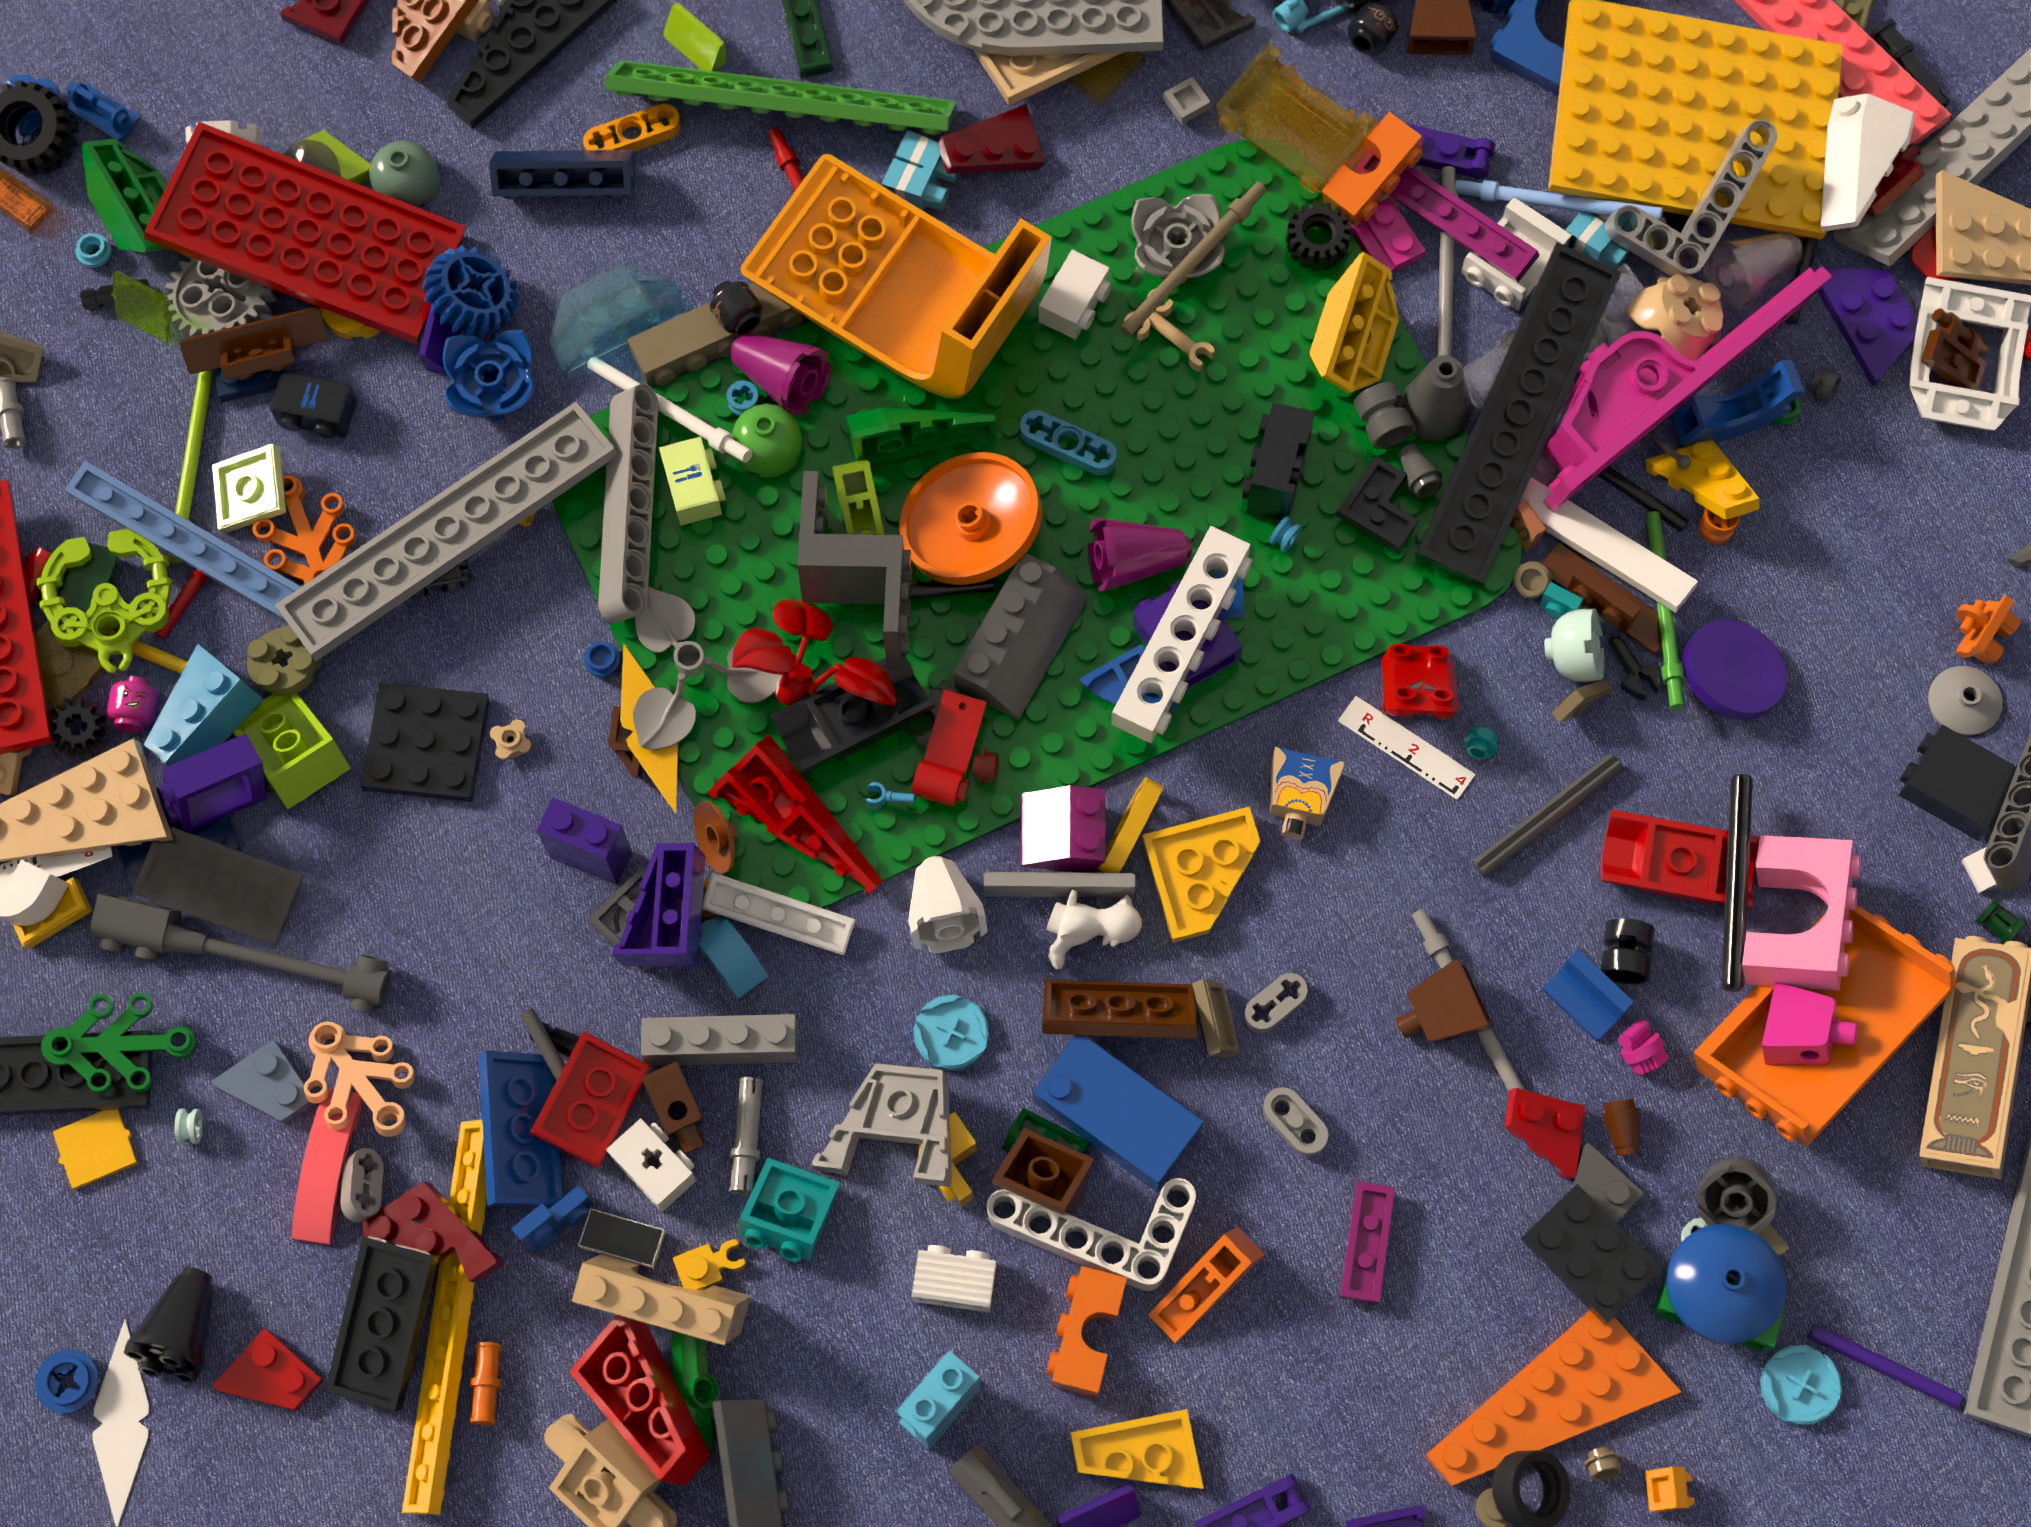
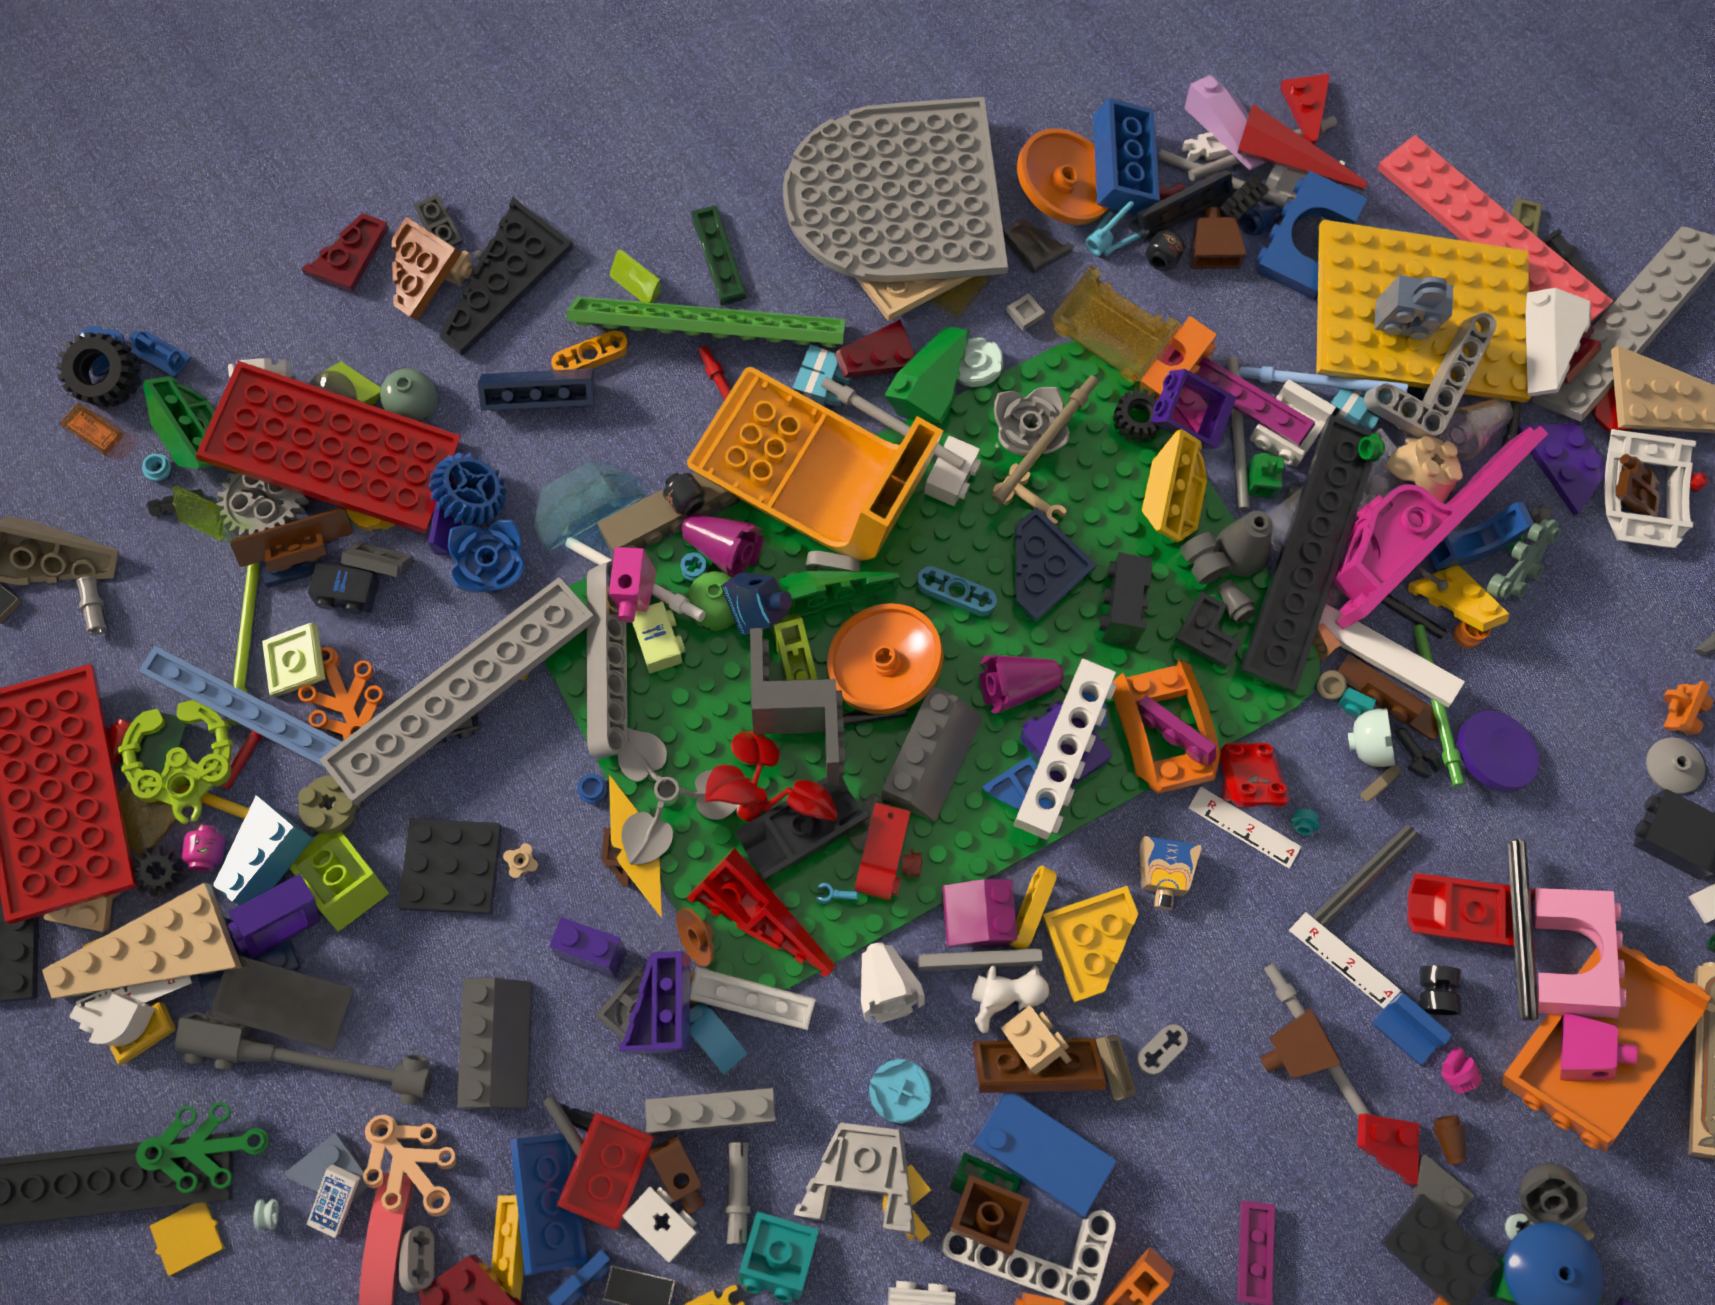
camera: 10 degrees left, 0 degrees up
(267, 1114) = (333, 1201): none -> tile
(355, 372) = (377, 559): none -> dark grey plate
(466, 949) = (494, 1044): none -> dark grey slope
(663, 409) = (631, 582): none -> dark pink torso
(814, 440) = (755, 601): none -> dark blue torso
(912, 398) = (831, 562): none -> light grey beam
(950, 196) = (848, 396): none -> light grey bar
(1053, 181) = (929, 379): none -> green wedge
(1117, 978) = (1034, 1041): none -> tan bracket
(1118, 161) = (981, 363): none -> light aqua tile
(1183, 415) = (1045, 565): none -> dark blue plate
(1285, 534) = (1136, 658): dark azure bush -> none
(1295, 1122) = (1187, 1151): light grey plate -> none
(1311, 570) = (1160, 686): none -> orange wedge
(1325, 623) = (1177, 731): none -> magenta plate
(1414, 240) = (1215, 416): none -> dark purple window
(1448, 149) = (1232, 343): dark purple plate -> none
(1473, 318) = (1265, 475): none -> green brick
(1513, 910) = (1344, 960): none -> white sticker
(1604, 285) = (1371, 447): none -> green plate
(1675, 99) = (1414, 306): none -> sand blue brick
(1824, 404) = (1529, 561): none -> sand green plant

